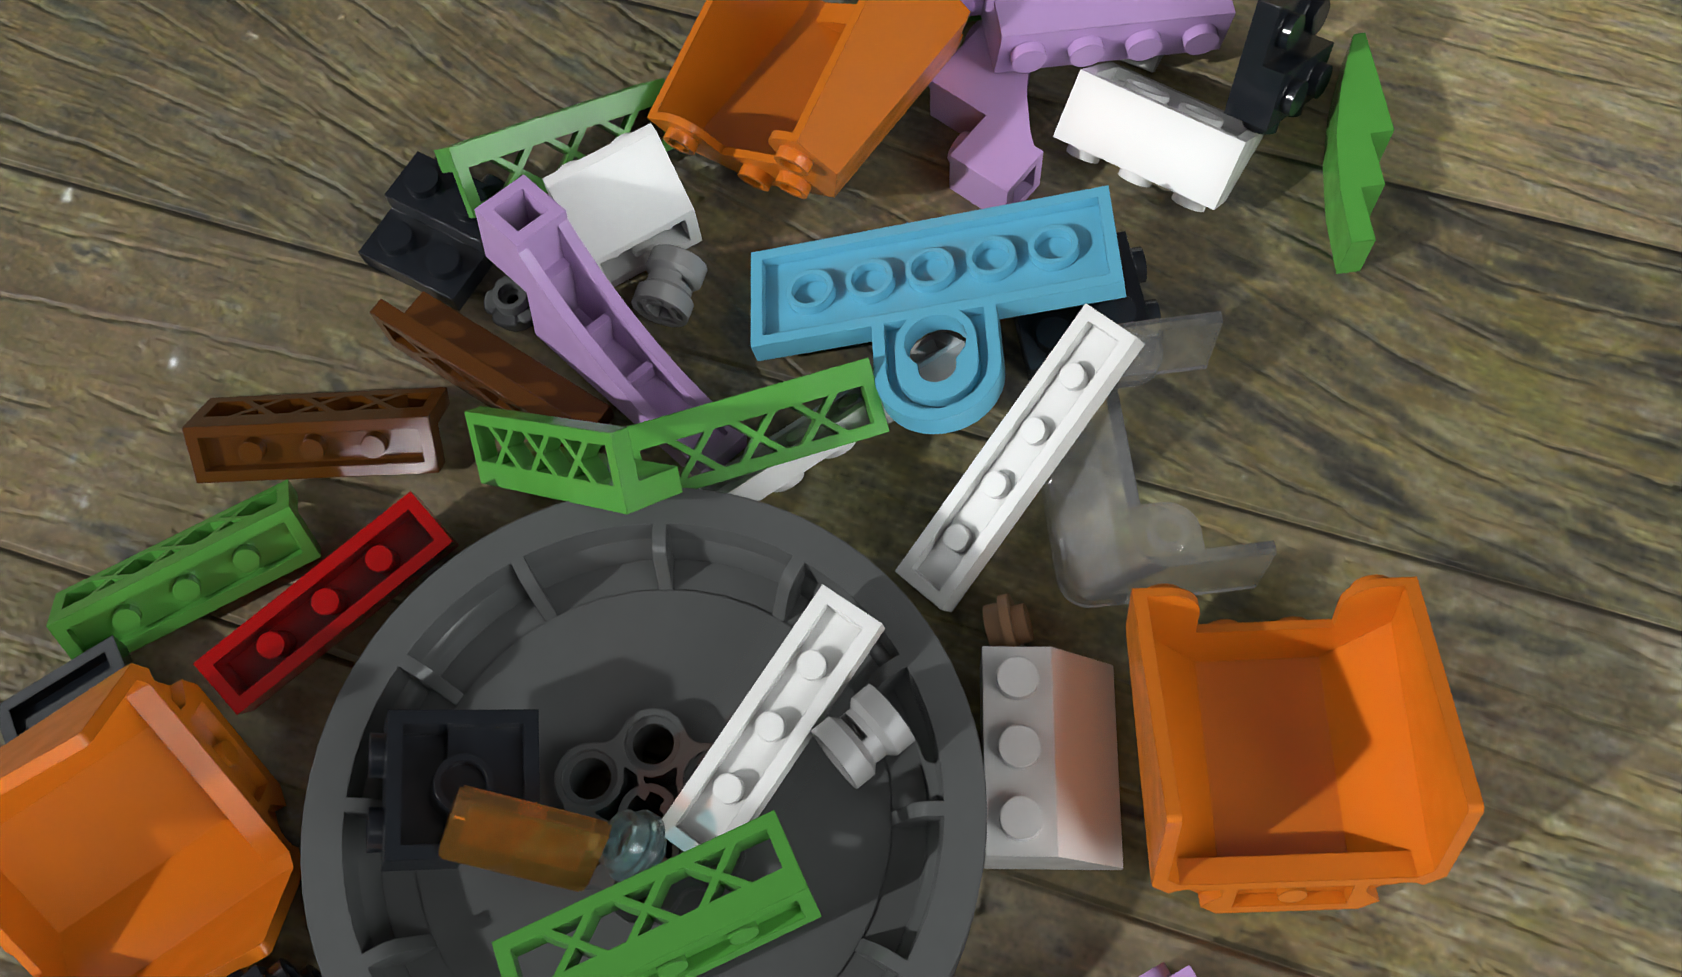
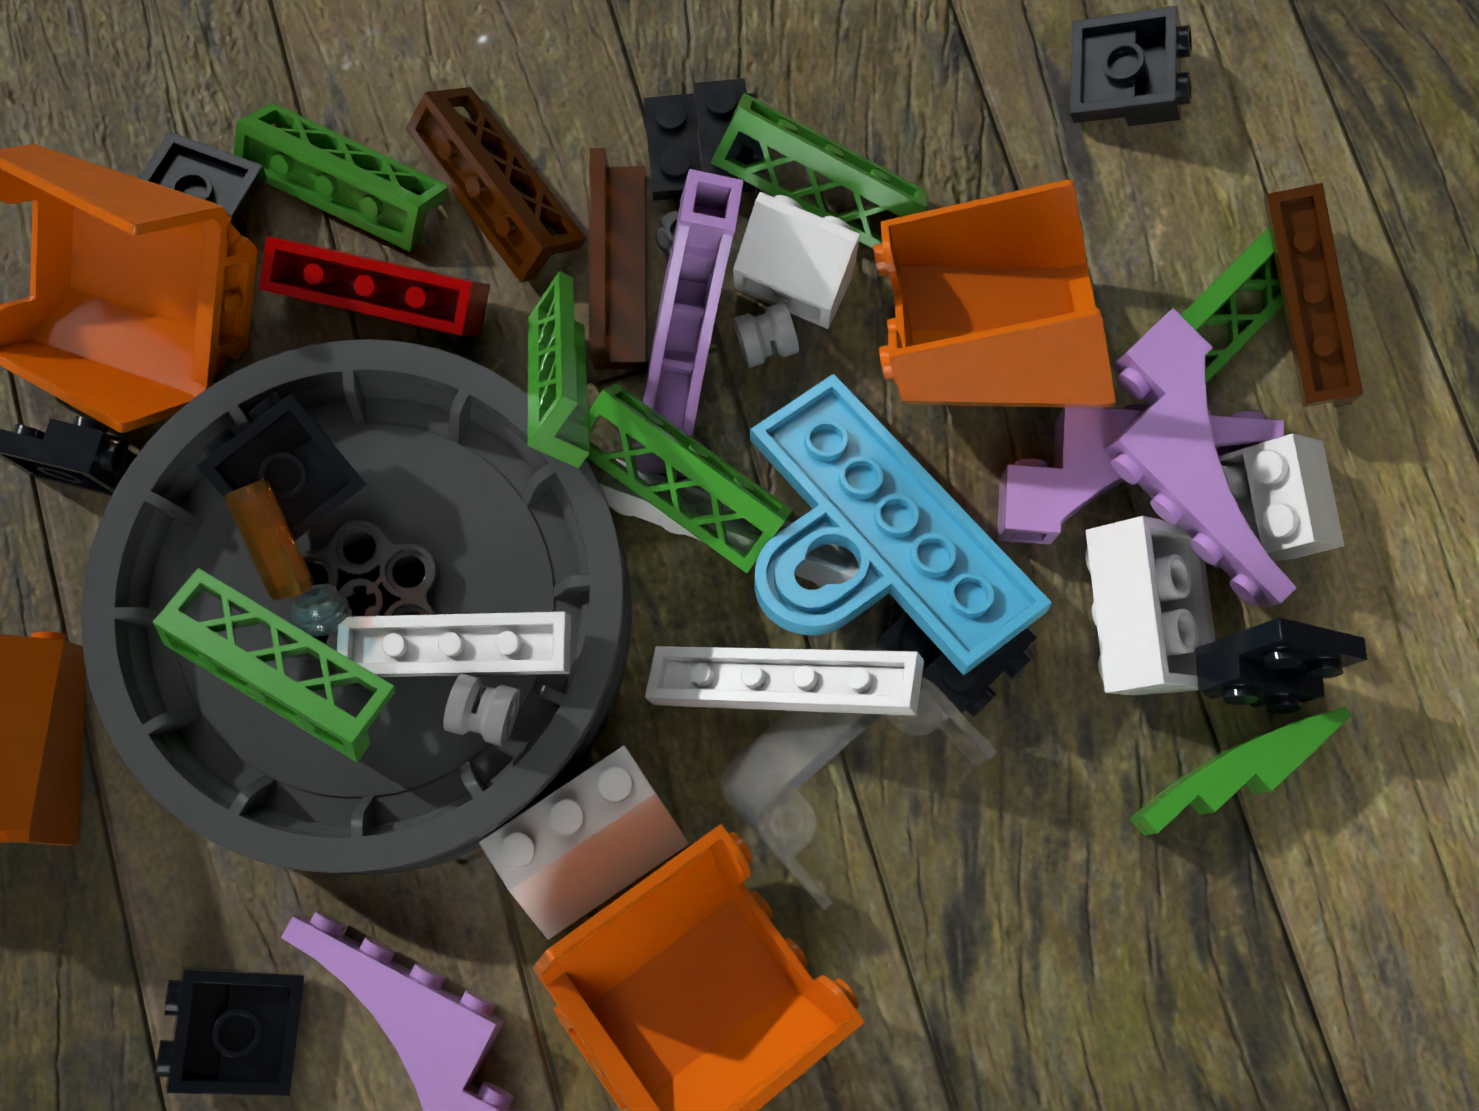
camera: 50 degrees right, 10 degrees up
(1007, 623) = (664, 751): medium nougat plate -> none

